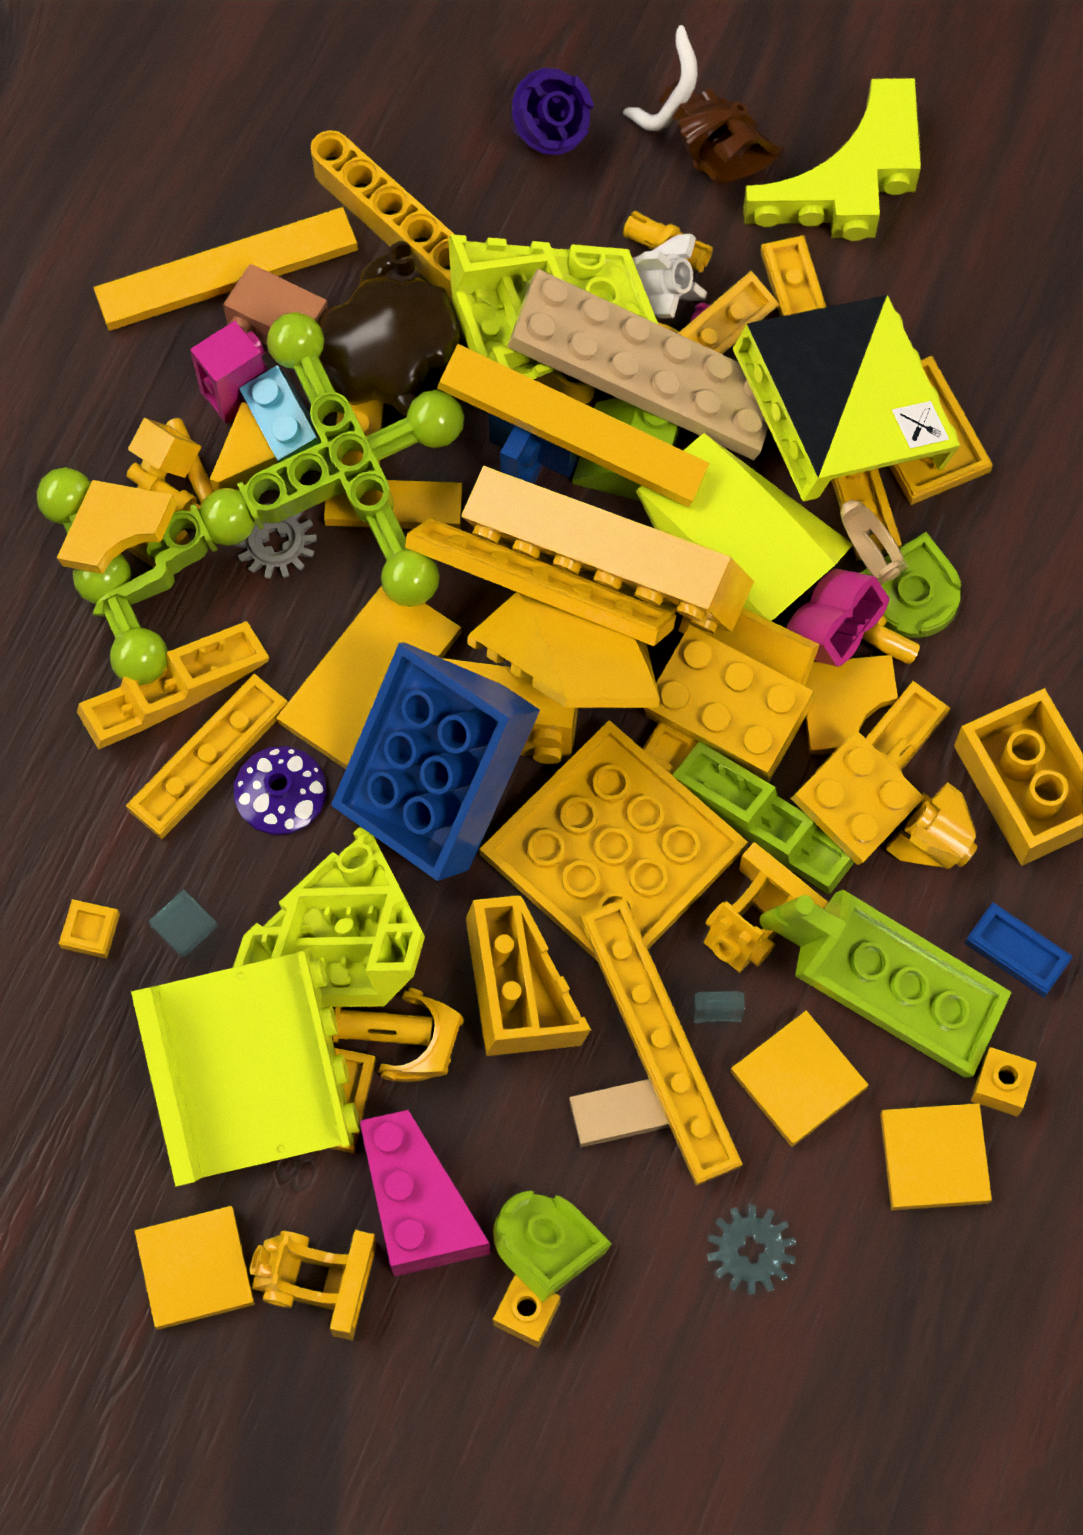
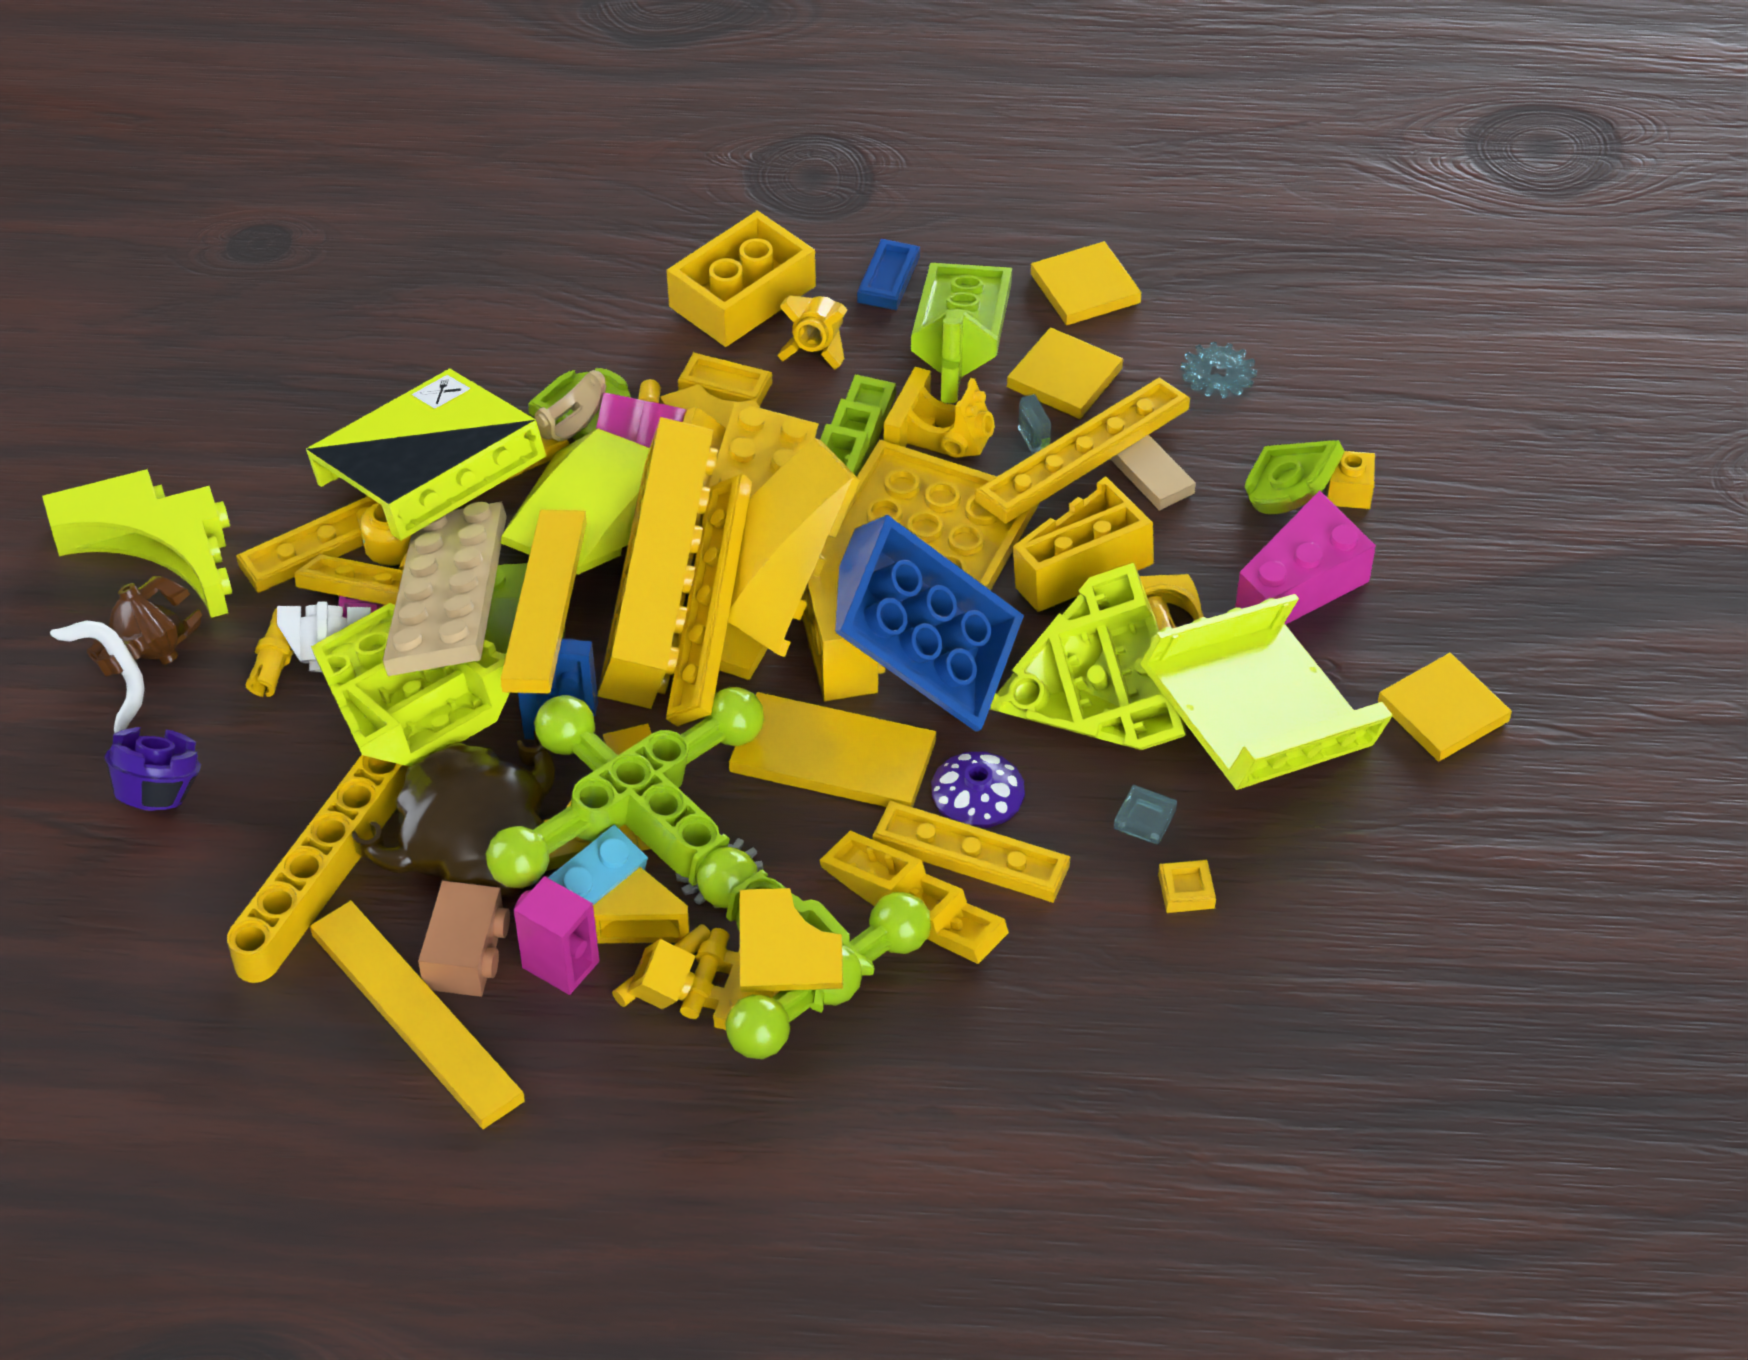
camera: 110 degrees left, 20 degrees down
(278, 1266) = (1407, 619): yellow tile -> none
(859, 795) = (803, 375): yellow plate -> none
(999, 1096) = (1007, 249): yellow plate -> none

